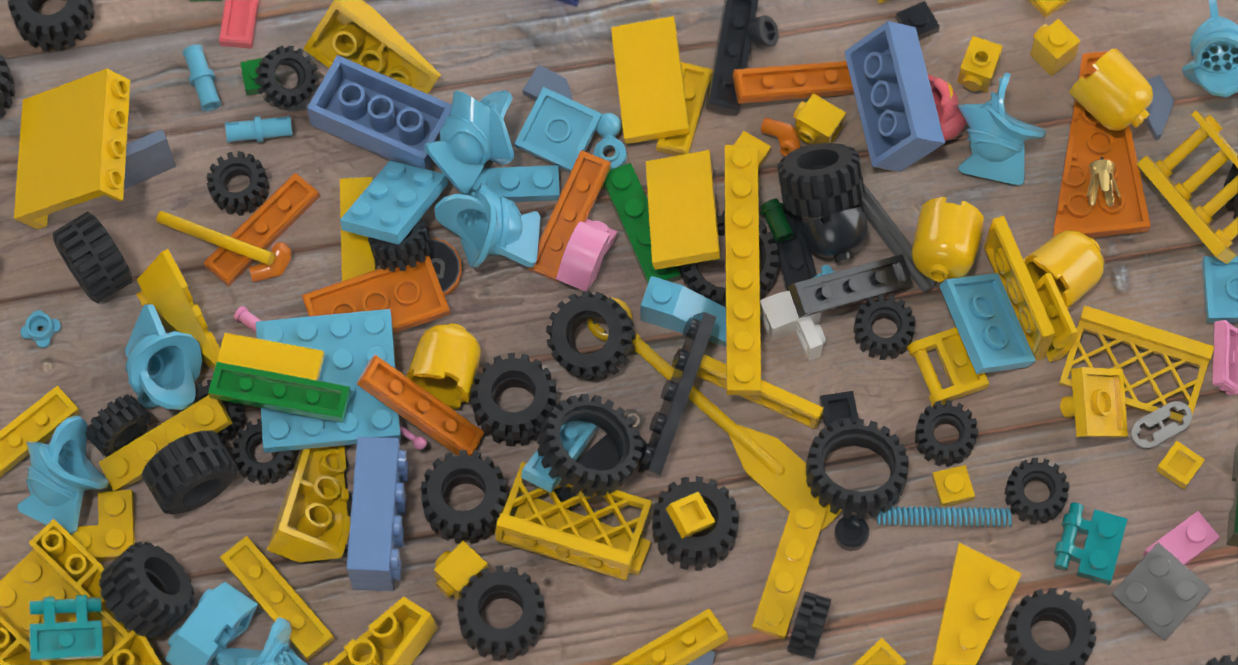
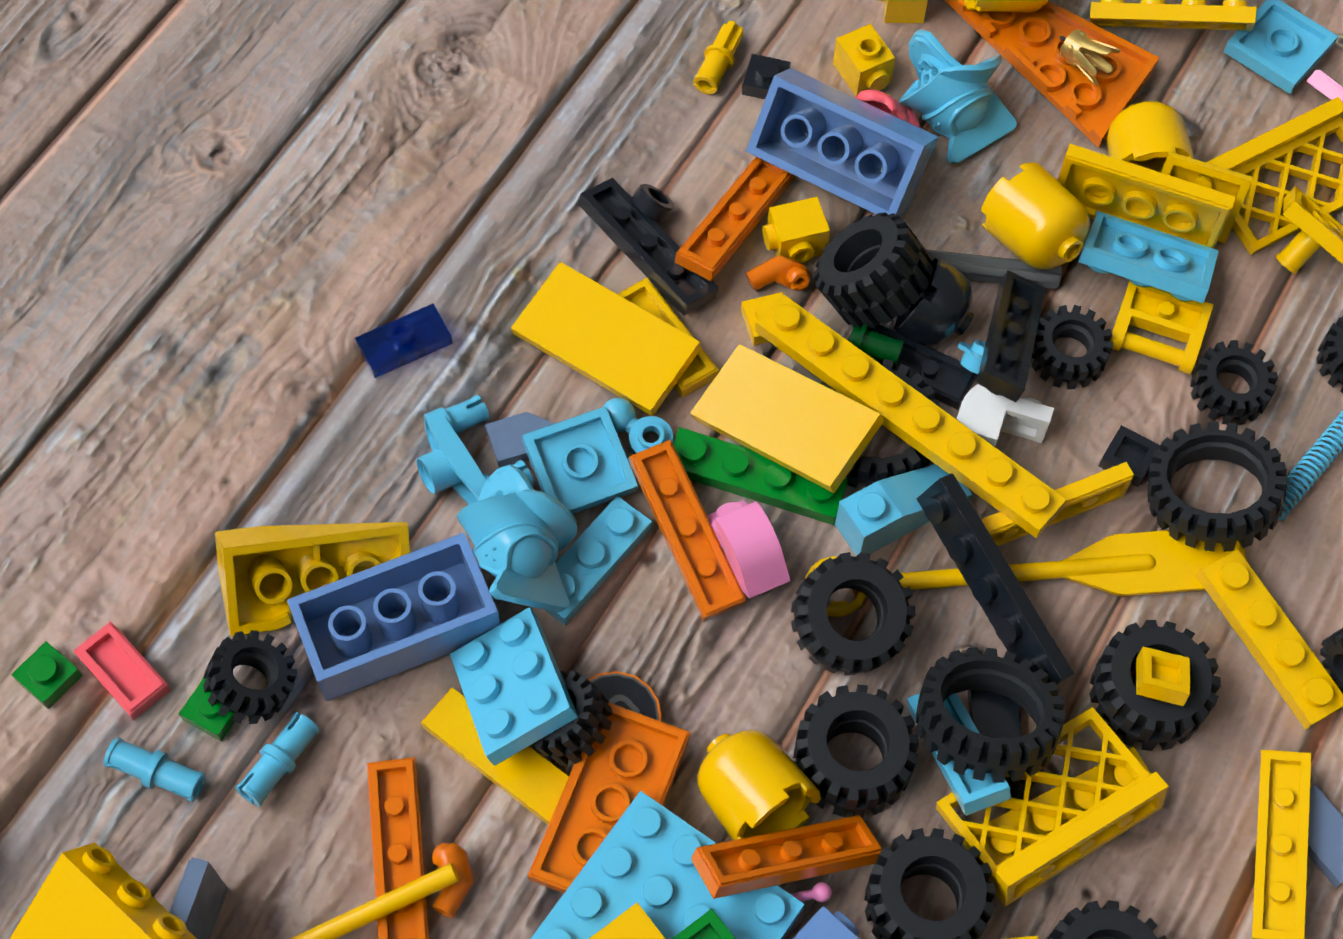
camera: 50 degrees left, 5 degrees down
(237, 200) = (300, 815): black tyre -> none
(490, 226) = (633, 615): medium azure helmet -> none
(496, 66) = (449, 460): none -> medium azure connector
(851, 533) = (1273, 552): black tile -> none
(953, 486) = (1293, 422): yellow plate -> none

